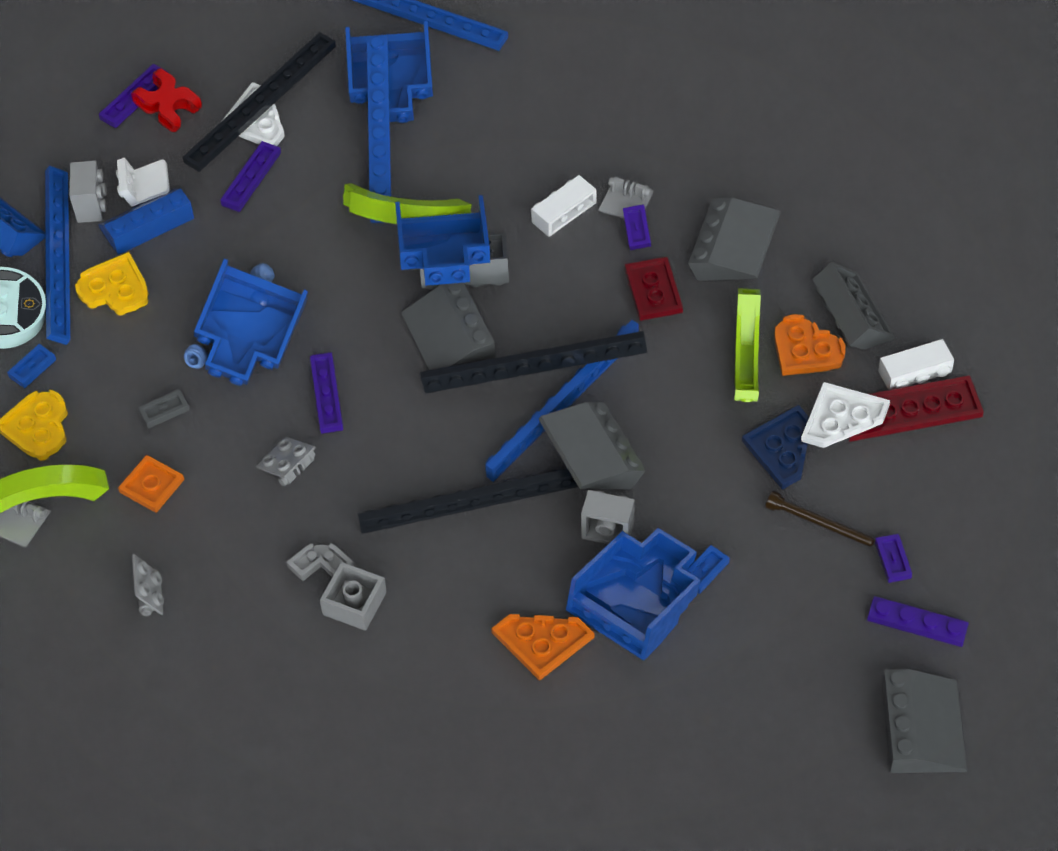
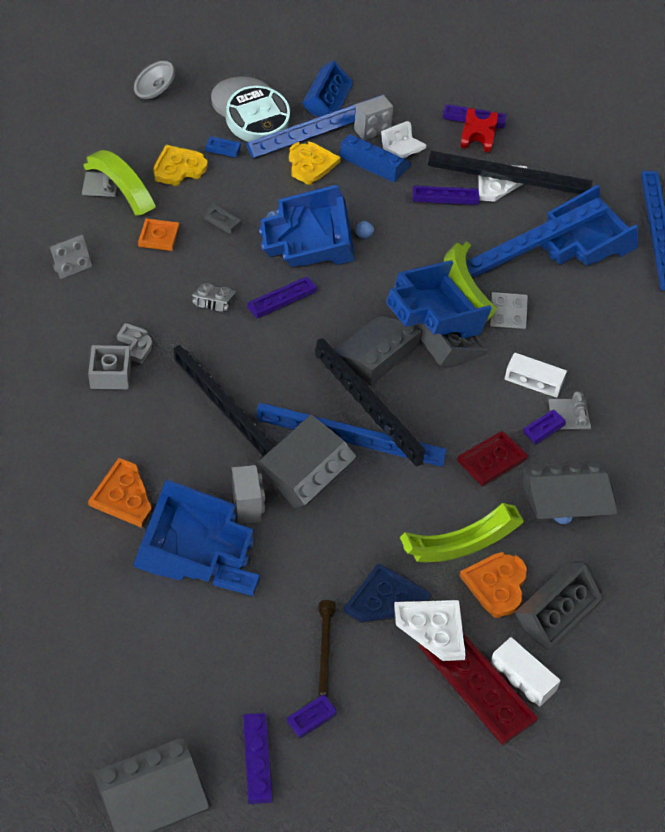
camera: 60 degrees right, 5 degrees down
(462, 186) = (510, 310): none -> light grey hinge

